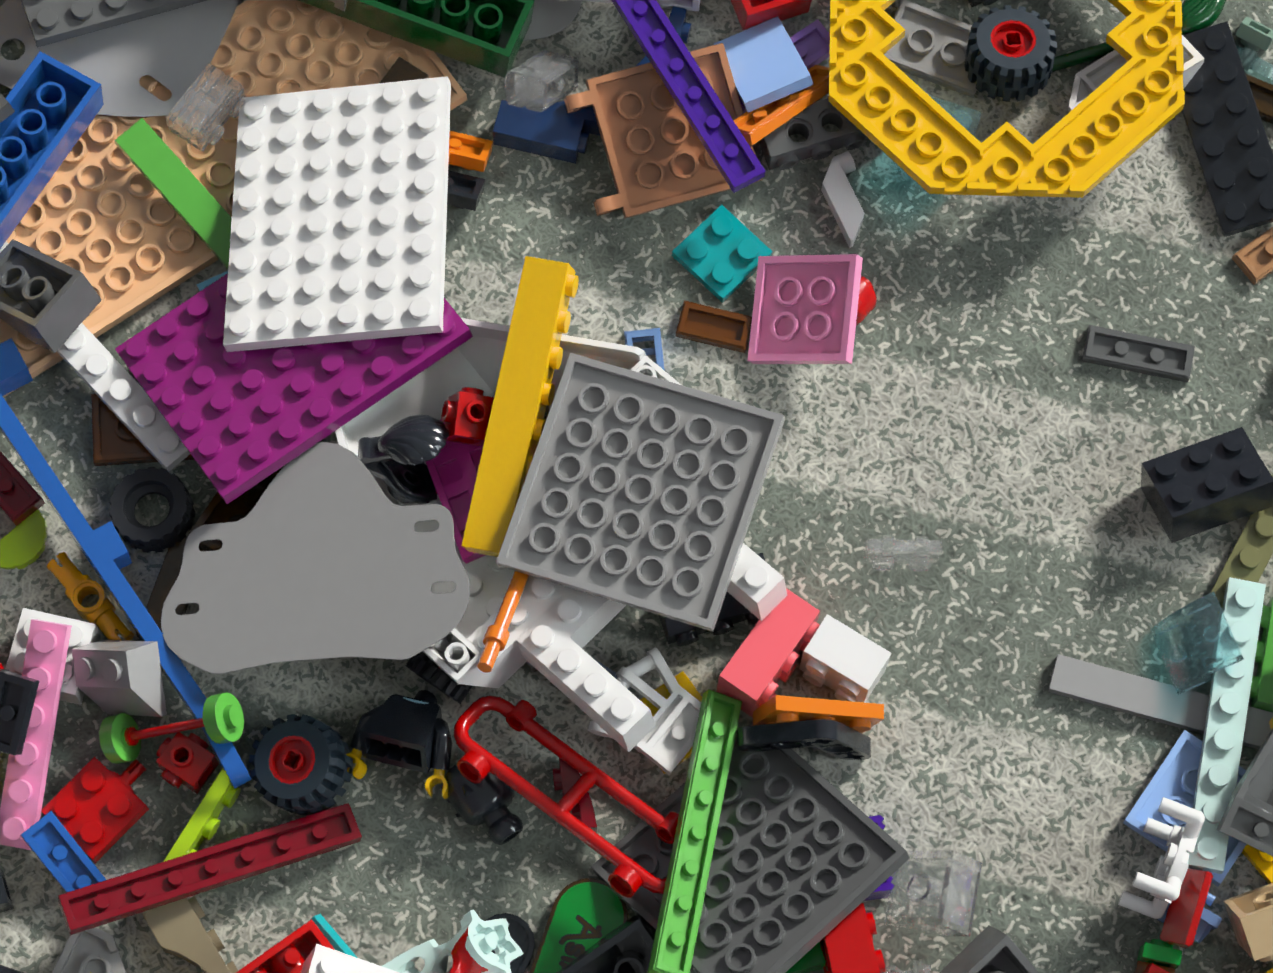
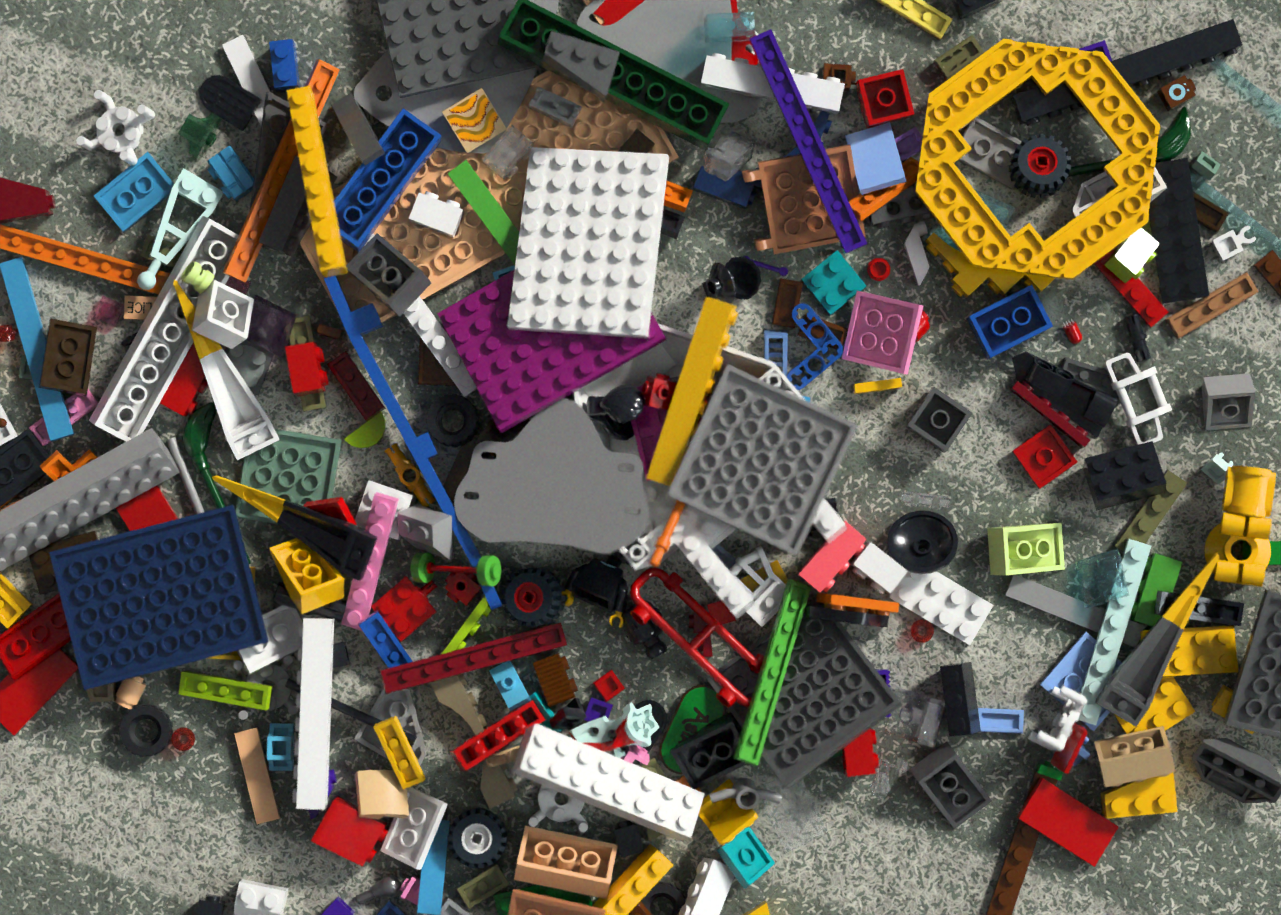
camera: 10 degrees right, 15 degrees up
(103, 205) = (436, 214): none -> white brick
(151, 67) = (474, 120): none -> slope
(271, 40) = (555, 107): none -> light grey hinge
(273, 907) = (510, 685): none -> medium azure plate
(347, 894) = (554, 679): none -> reddish brown brick
(376, 945) = (568, 716): none -> black bracket
(419, 931) = (597, 709): none -> dark purple plate
(435, 897) = (608, 685): none -> red tile
(576, 244) = (736, 279): none -> black animal
(607, 758) = (721, 612): none -> red tile
(642, 245) = (783, 271): none -> dark purple hinge
(654, 290) = (787, 298): none -> reddish brown tile
(712, 339) = (820, 343): none -> blue beam
(788, 227) = (878, 269): none -> red plate
(807, 393) = (875, 386): none -> yellow tile
(908, 431) = (938, 419): none -> dark grey brick
(909, 615) = (924, 531): none -> black dish
(931, 216) = (971, 277): none -> yellow arch
(934, 750) = (929, 631): none -> clear red plate
(951, 709) = (943, 603): none -> white plate
(996, 278) = (1009, 322): none -> blue brick
(1001, 854) = (960, 699): none -> black brick
(1068, 402) = (1059, 420): none -> dark red plate
(1068, 886) = (1001, 720): none -> light blue tile
(1070, 613) = (1025, 549): none -> yellowish green slope
(1079, 473) = (1044, 456): none -> red plate
(1087, 371) = (1066, 394): none -> black panel
(1095, 290) = (1072, 332): none -> red piece
(1167, 163) = (1131, 256): none -> brick
(1169, 214) = (1135, 294): none -> red plate
(1178, 355) = (1132, 419): none -> white bar
(1194, 287) = (1137, 337): none -> black pin

